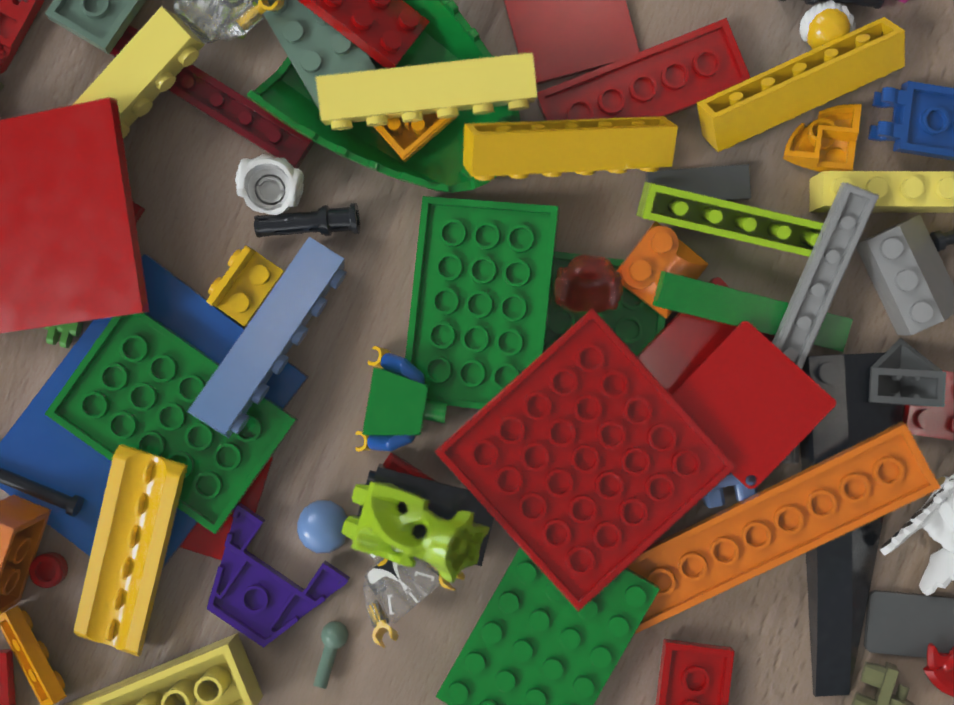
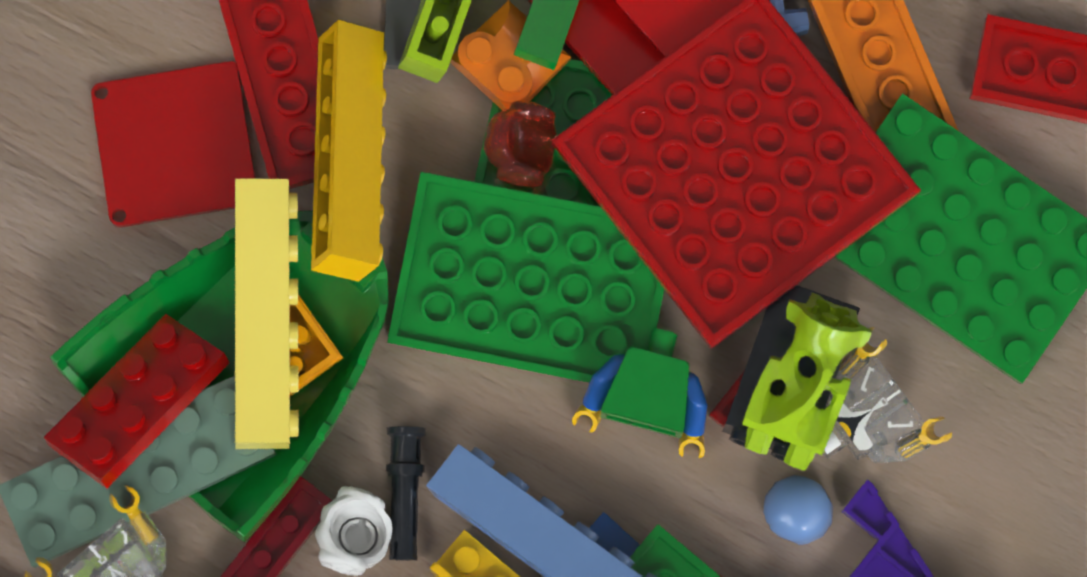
camera: 85 degrees left, 10 degrees down
(333, 636) = (940, 510): sand green bar -> none

